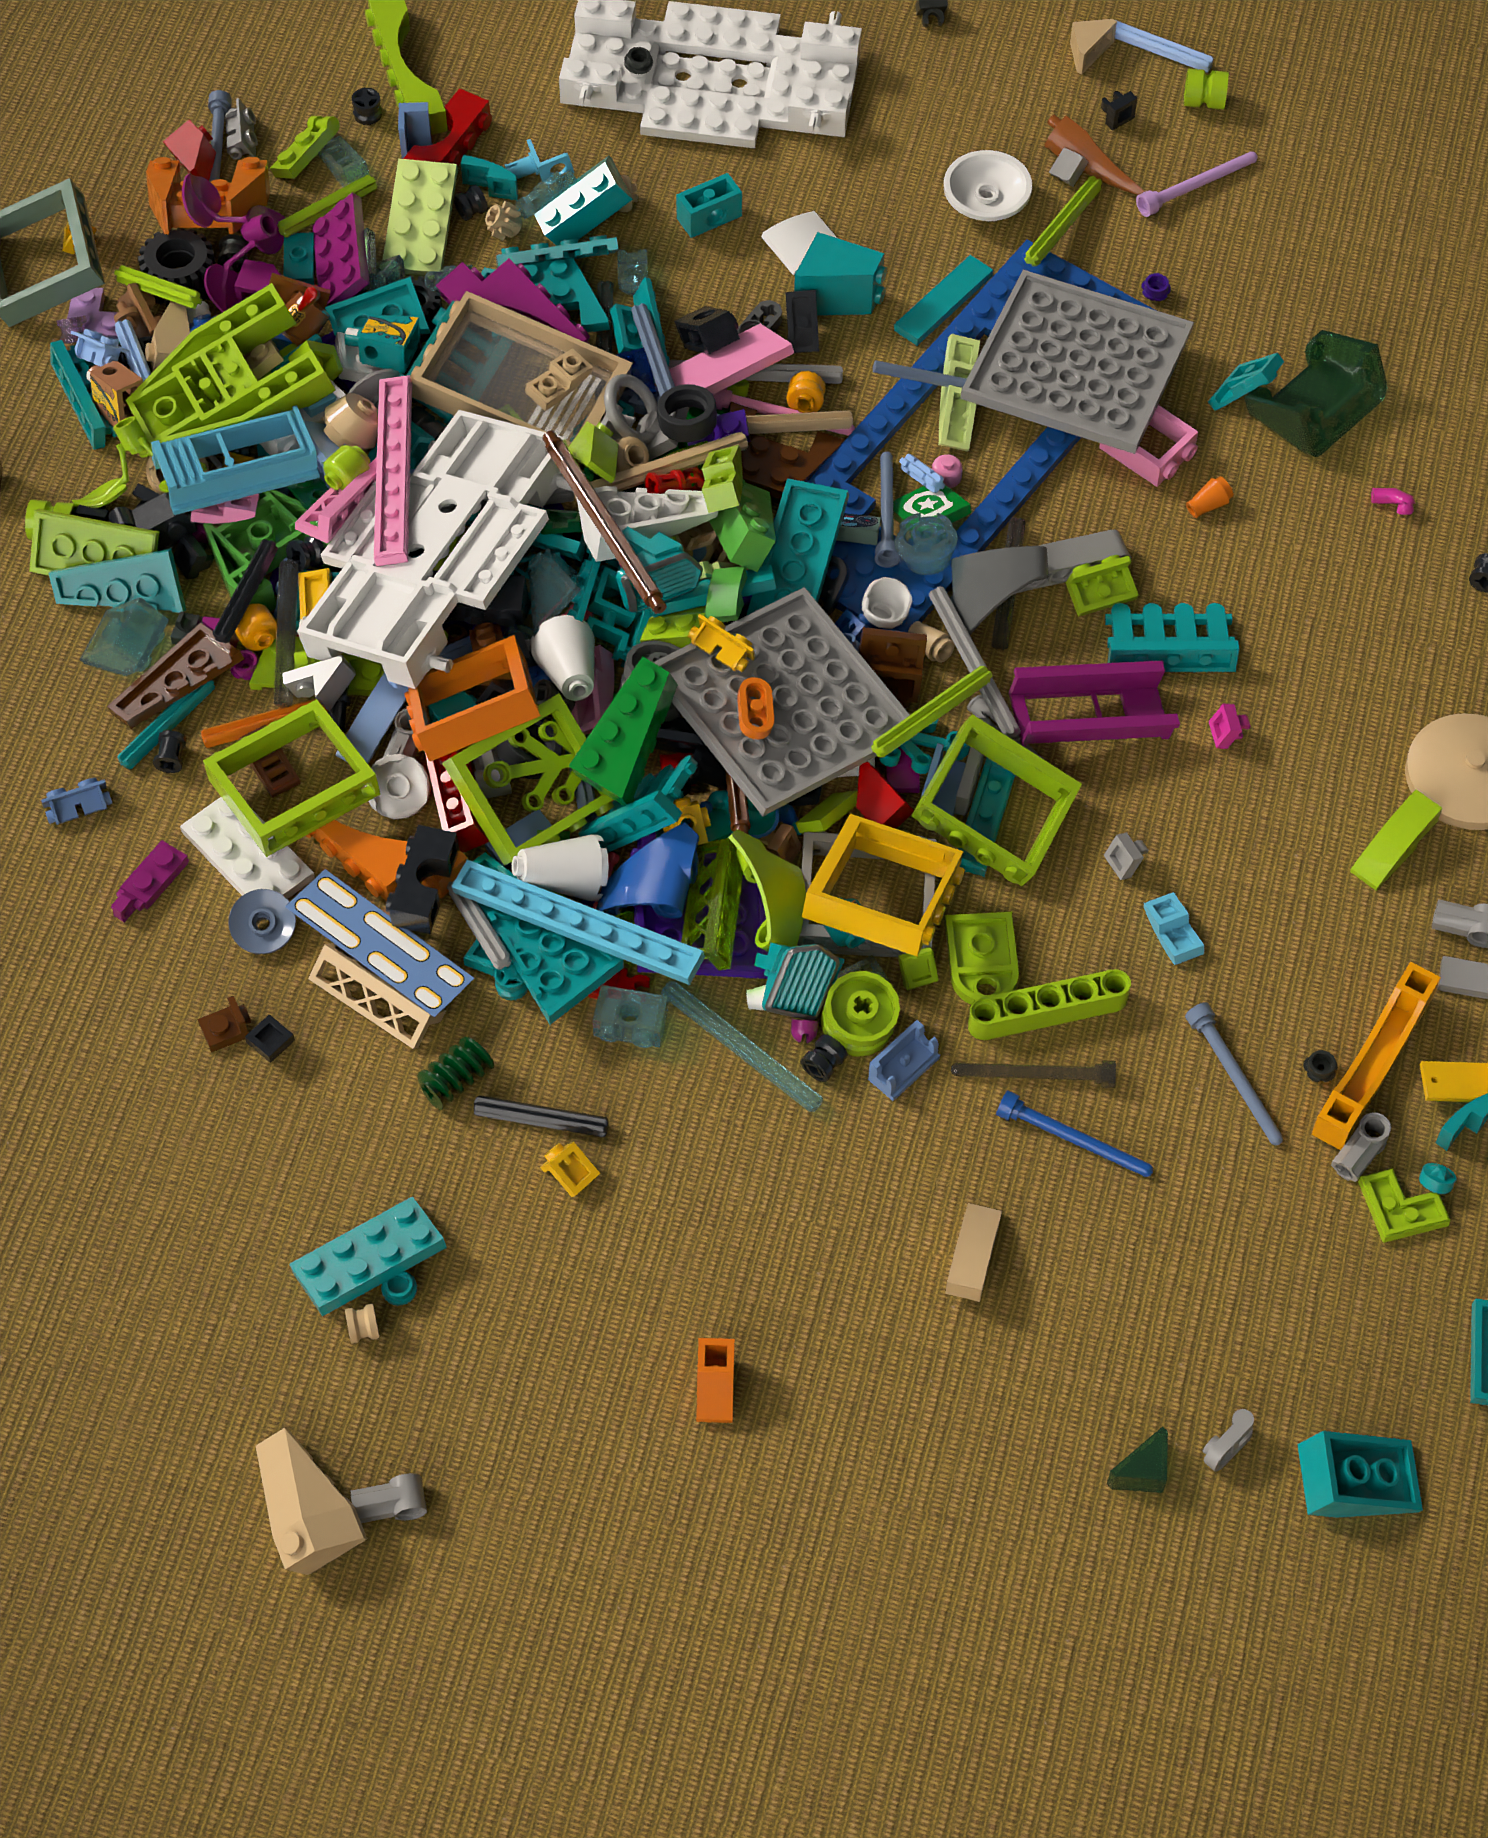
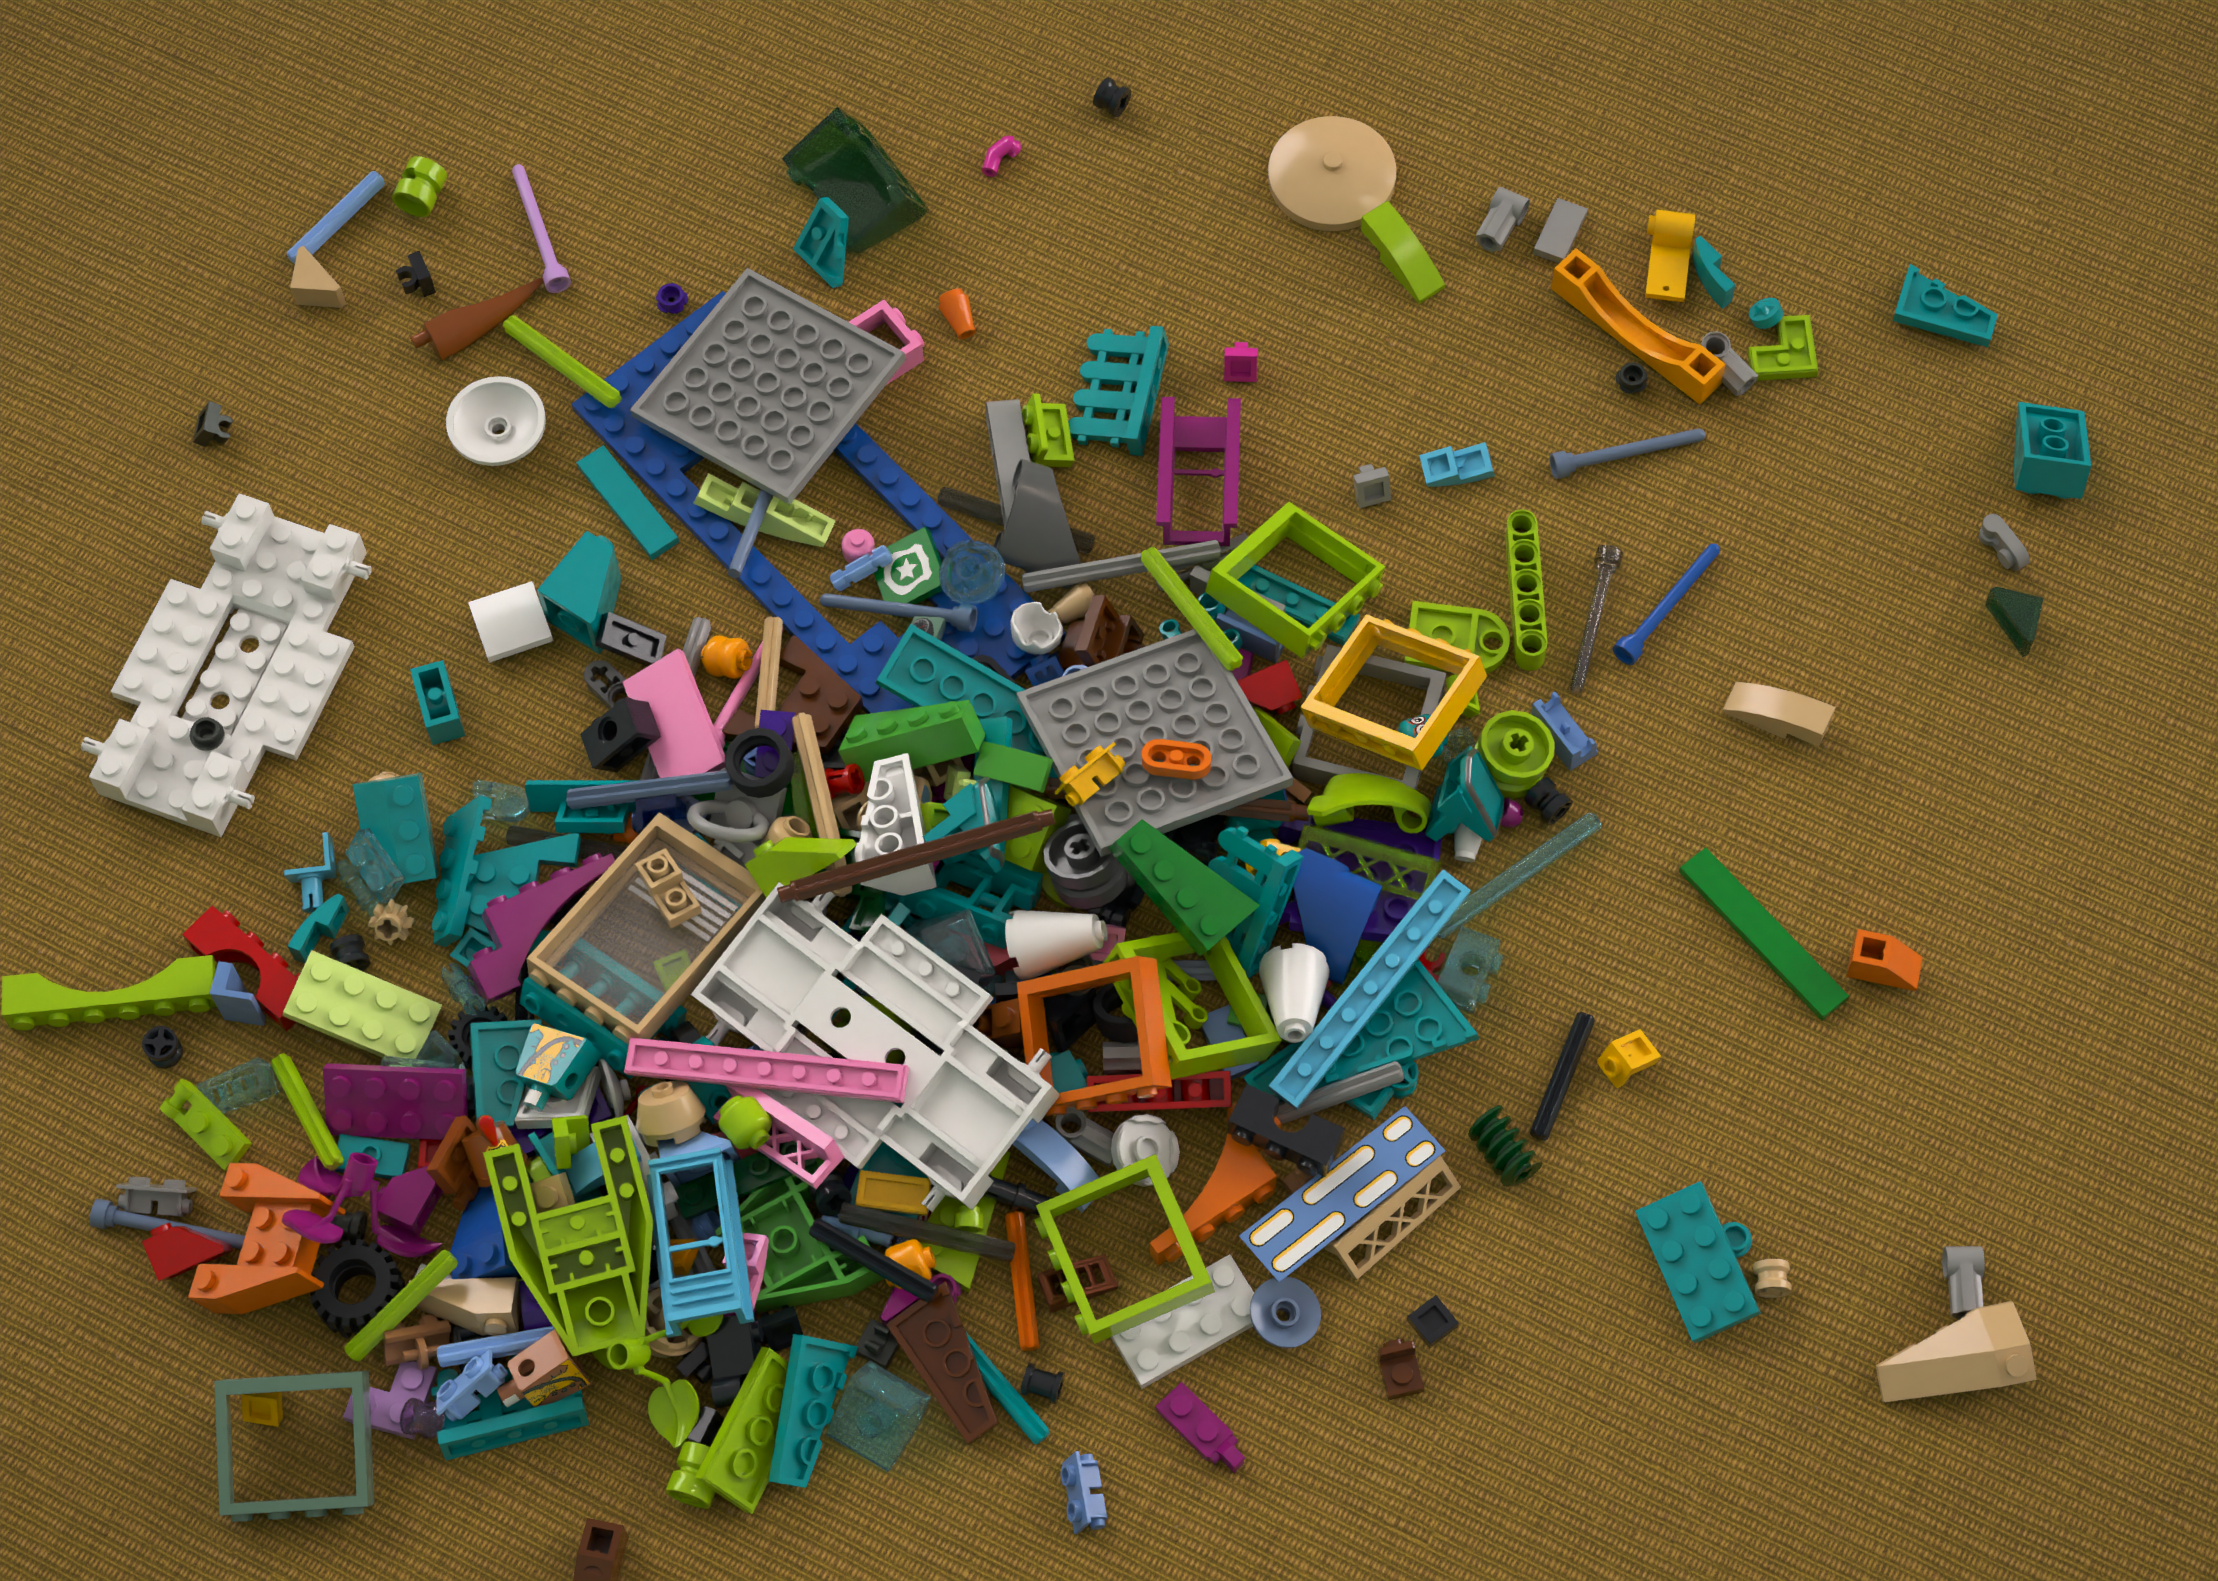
camera: 75 degrees left, 5 degrees up
(324, 679) = (1006, 1190): light grey slope -> none
(661, 483) = (847, 803): red bush -> none
(723, 479) = (869, 737): lime slope -> none
(728, 1273) = (1764, 934): none -> green tile
(1068, 166) = (483, 342): light grey slope -> none

